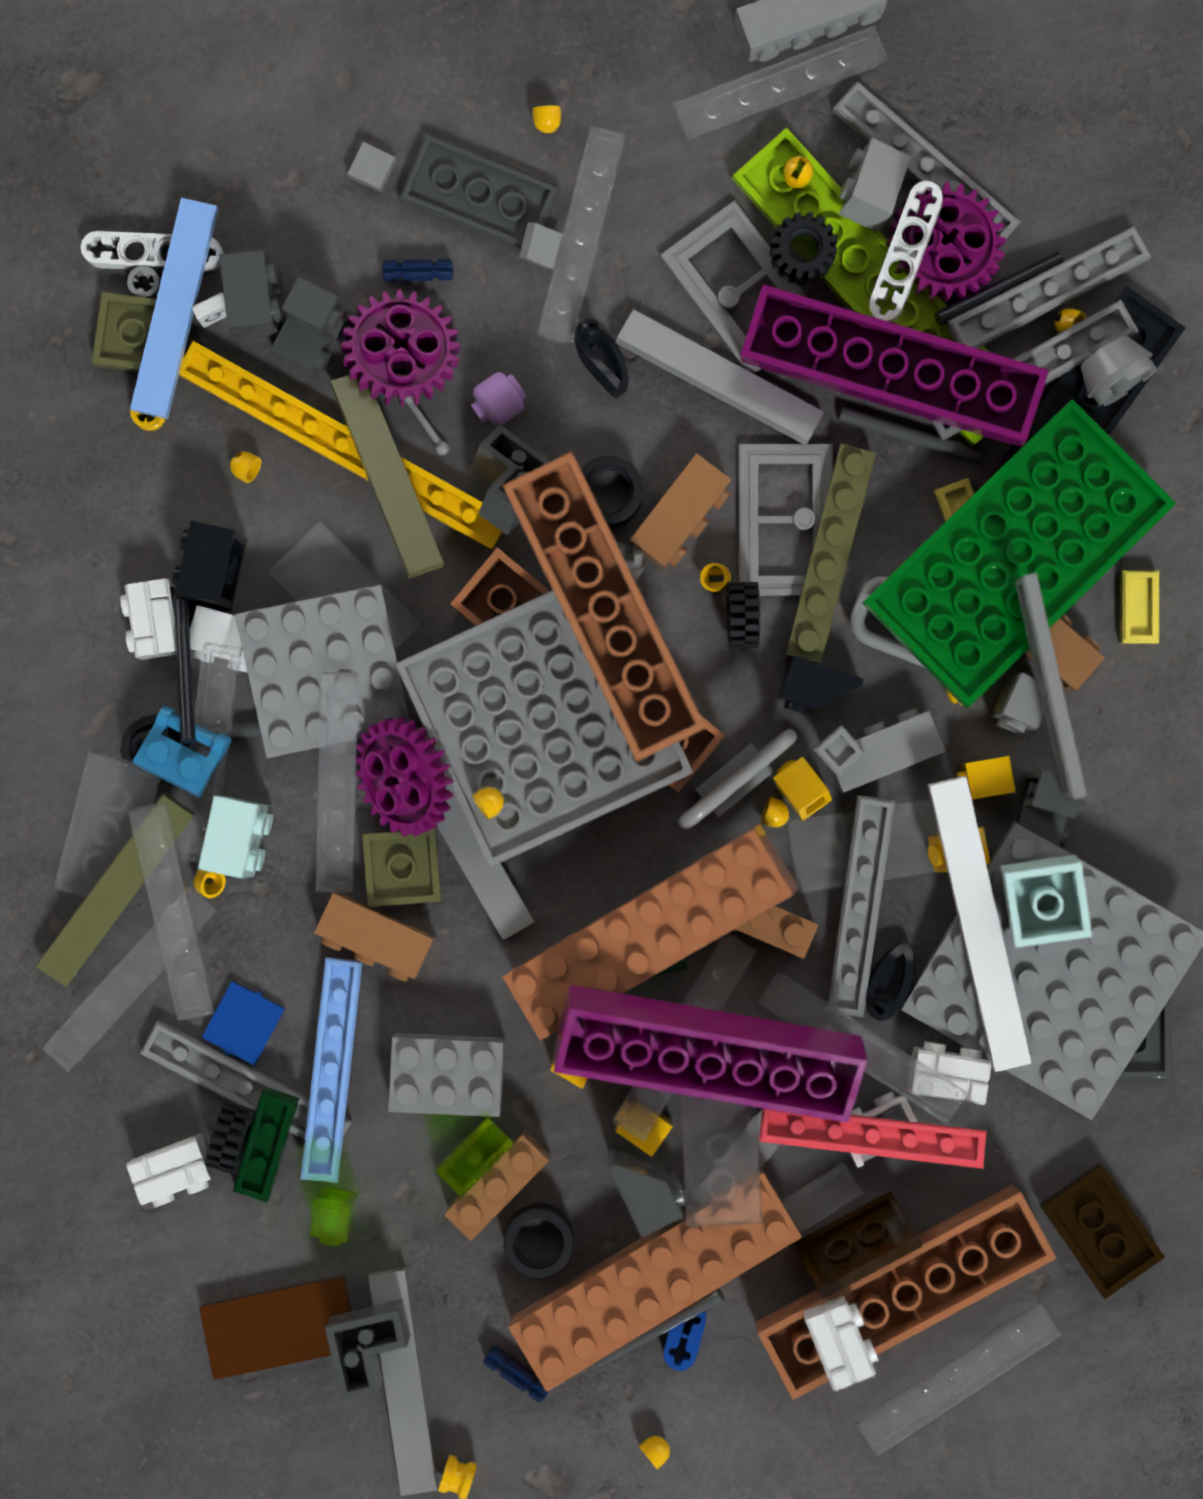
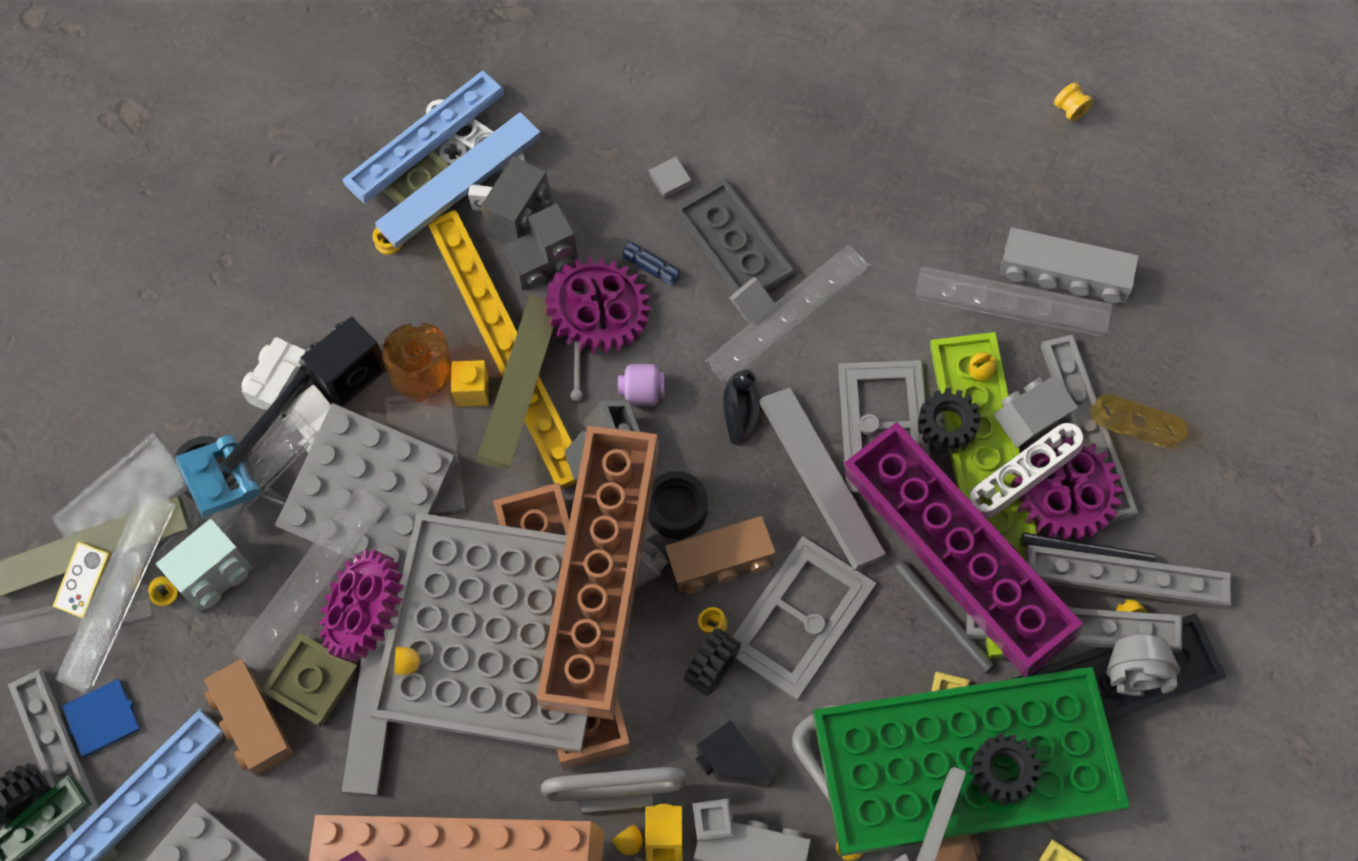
camera: 35 degrees right, 20 degrees down
(105, 285) = (423, 137): none -> light blue tile
(133, 922) = (81, 579): none -> tile
(245, 466) = (426, 314): yellow hinge -> none
(277, 517) = (417, 360): none -> clear orange brick
(339, 505) = (470, 383): none -> yellow brick
(546, 118) = (820, 220): yellow hinge -> none
(830, 553) = (816, 664): olive plate -> none
(980, 119) = (1151, 415): none -> clear yellow beam
(1081, 543) = (1023, 757): none -> black tyre

